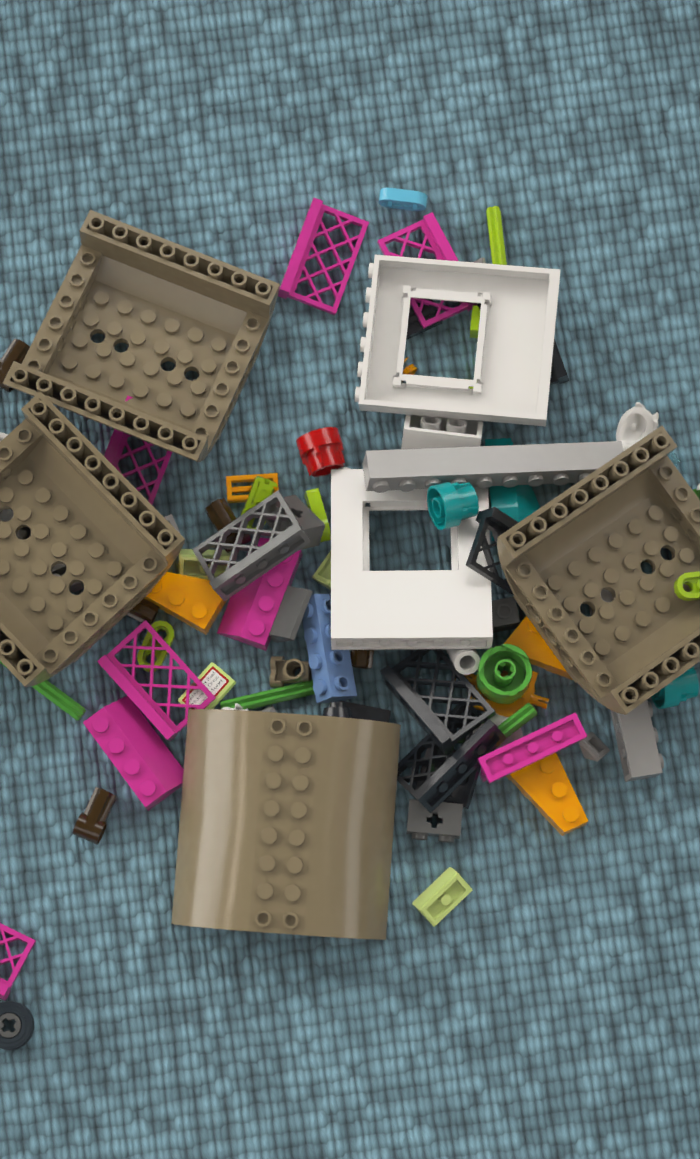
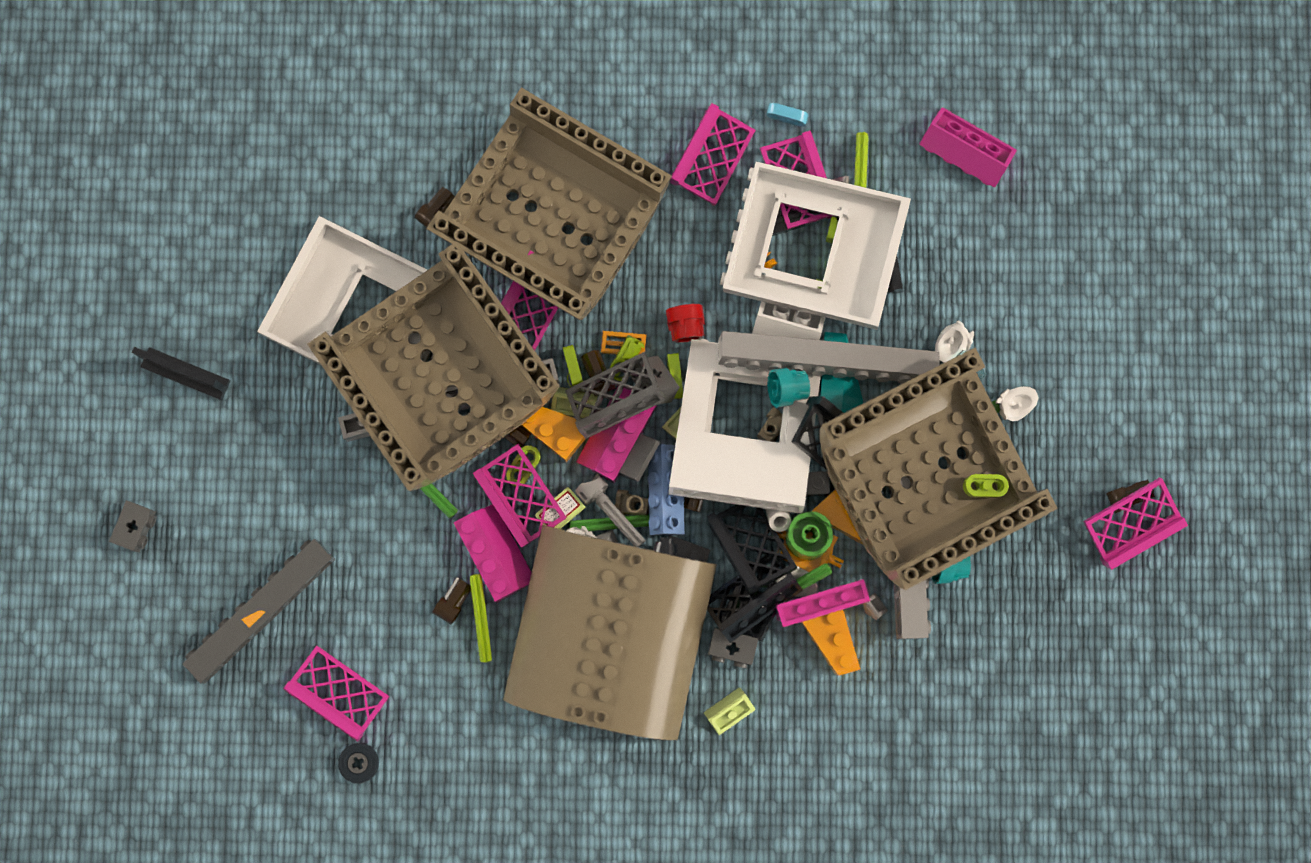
camera: 10 degrees right, 5 degrees up
(131, 831) = (480, 618): none -> lime axle
(196, 520) = (572, 365): none -> lime piece
(244, 662) = (594, 492): none -> light grey piece
(441, 554) = (772, 423): none -> dark tan plate
(616, 206) = (968, 147): none -> dark pink slope

